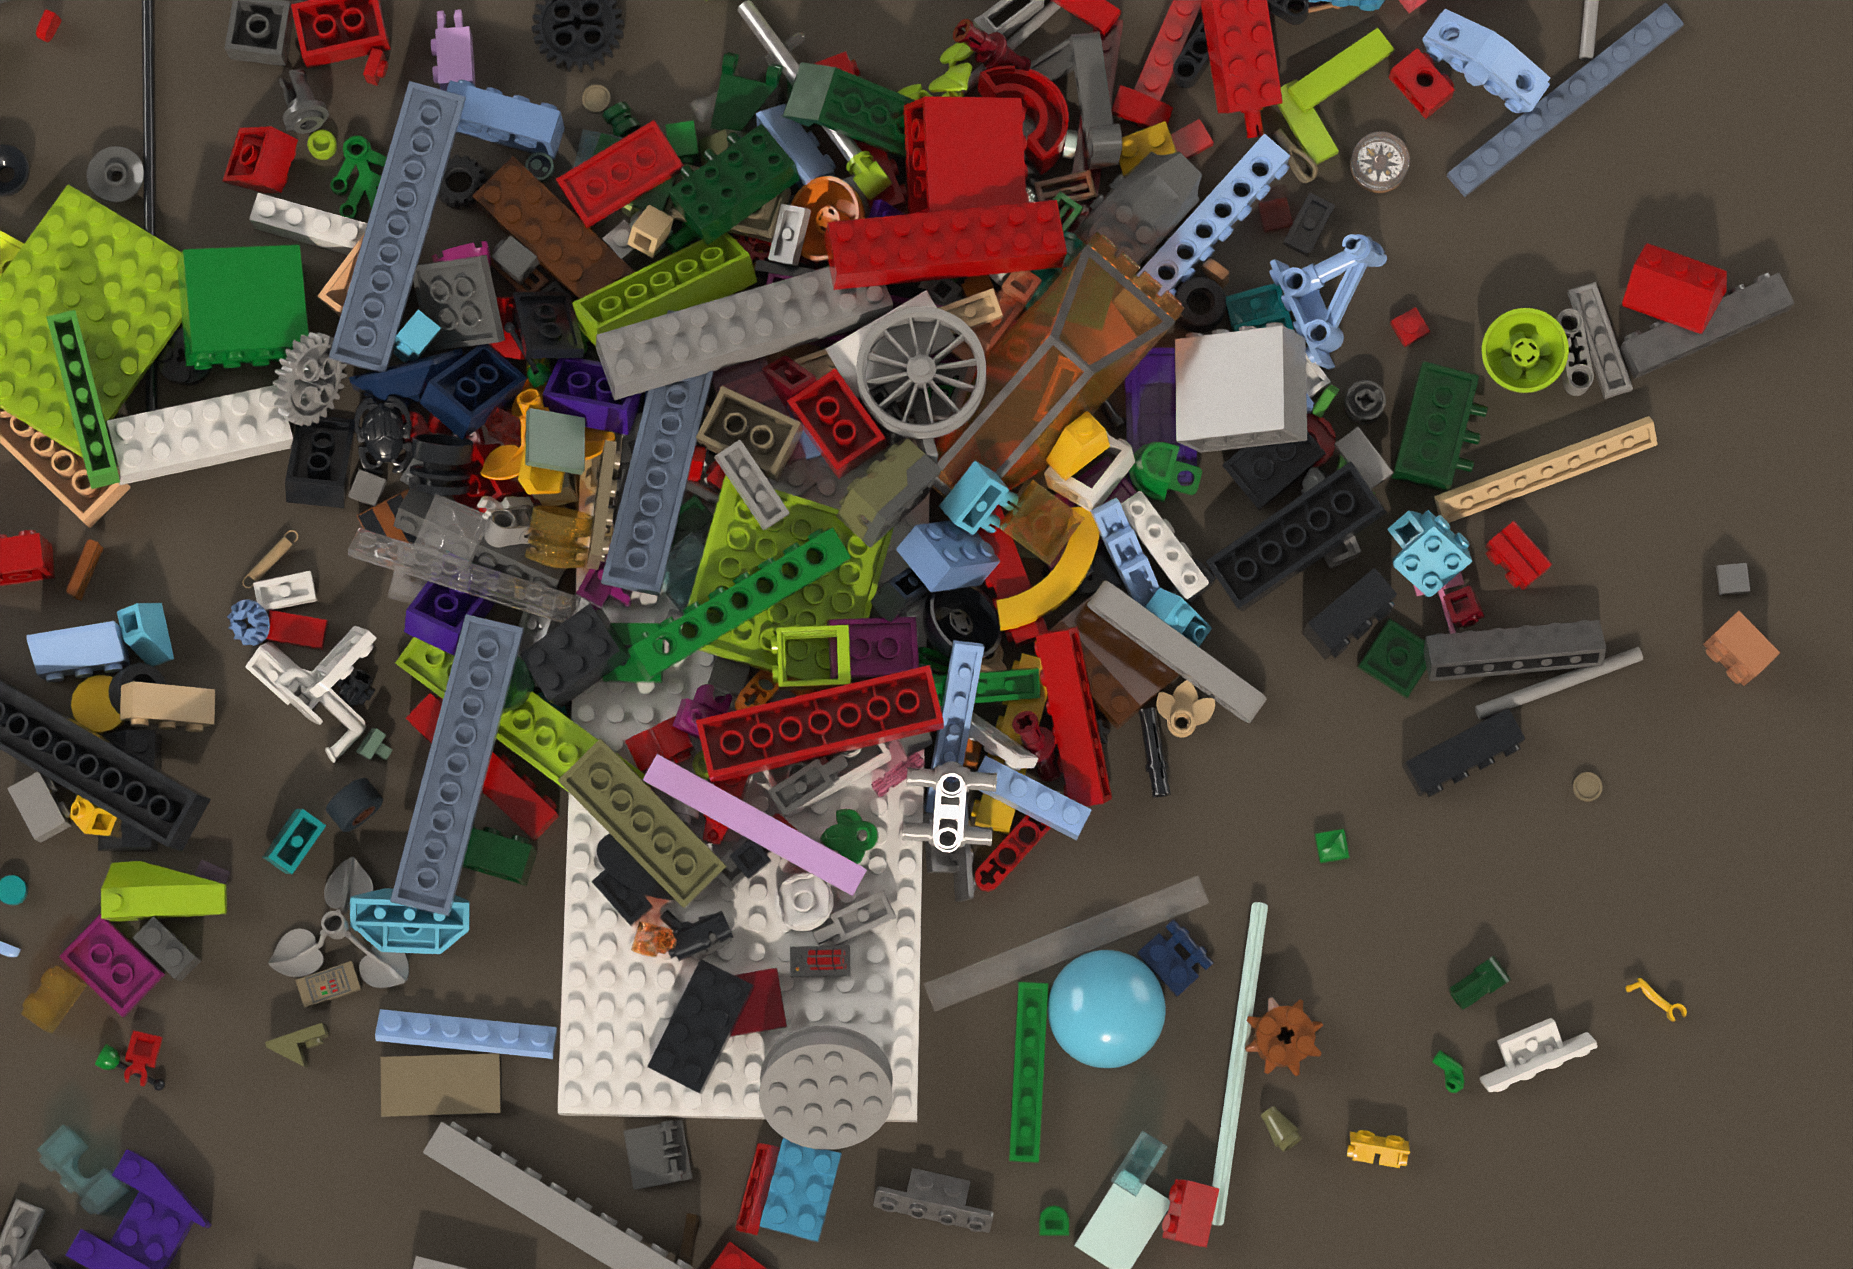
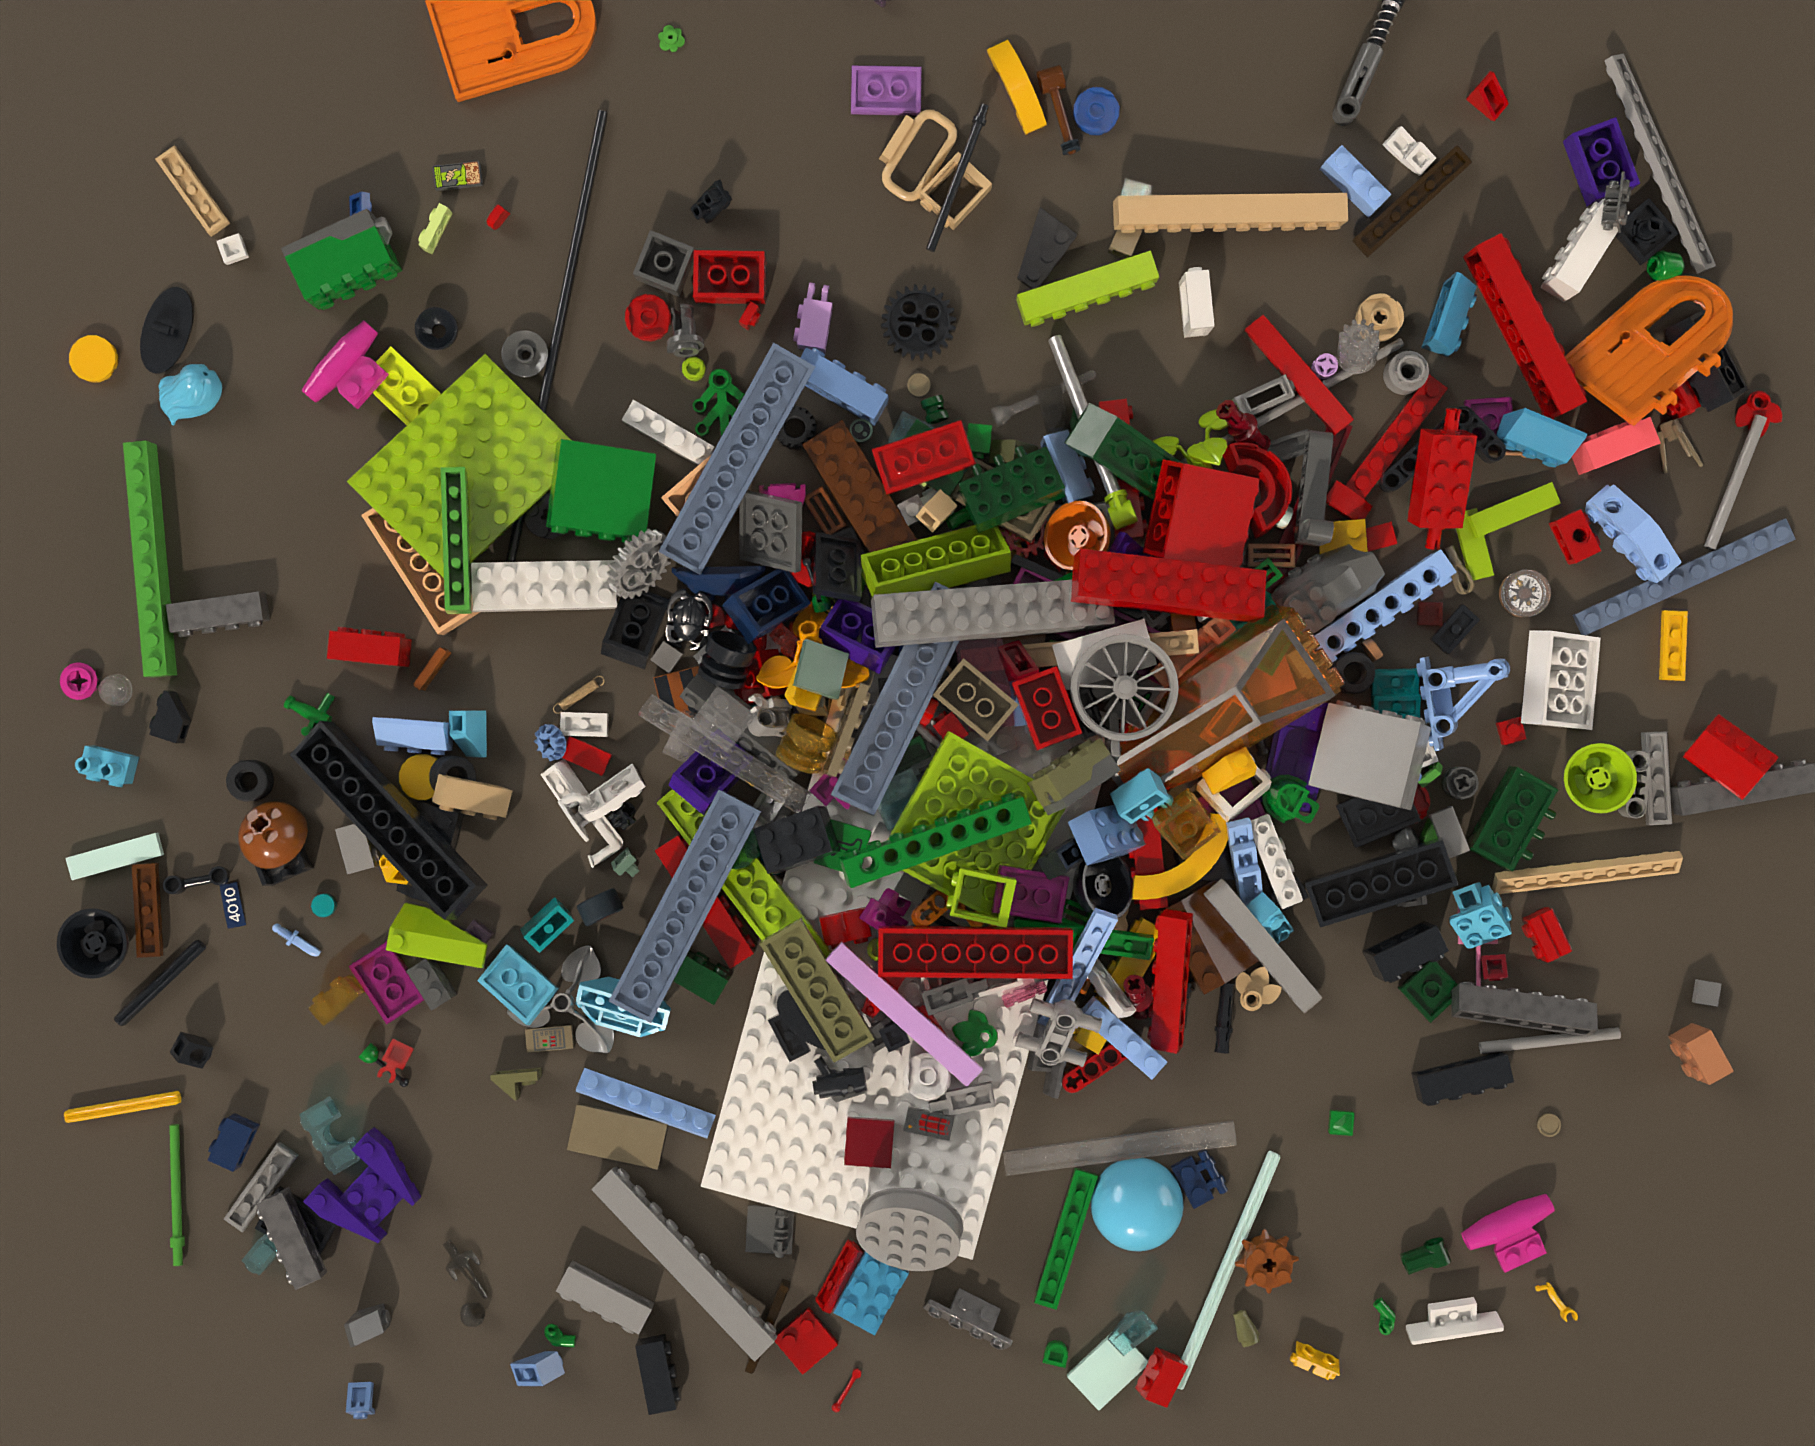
camera: 15 degrees right, 10 degrees up
(254, 99) = (648, 317): none -> red tile
(261, 159) = (642, 370): red slope -> none
(274, 923) = (518, 984): none -> medium azure plate
(415, 337) = (731, 549): medium azure slope -> none
(514, 259) = (823, 503): dark grey brick -> none
(653, 940) = (804, 1079): clear orange piece -> none
(701, 1026) = (825, 1152): black piece -> none
(739, 96) = (1034, 414): dark green flag -> none
(752, 485) = (967, 746): light grey plate -> none
(789, 234) = (1045, 541): light grey plate -> none
(1451, 252) = (1560, 679): none -> white slope
(1573, 923) = (1512, 1231): none -> dark pink plate
(1575, 181) = (1673, 645): none -> yellow tile

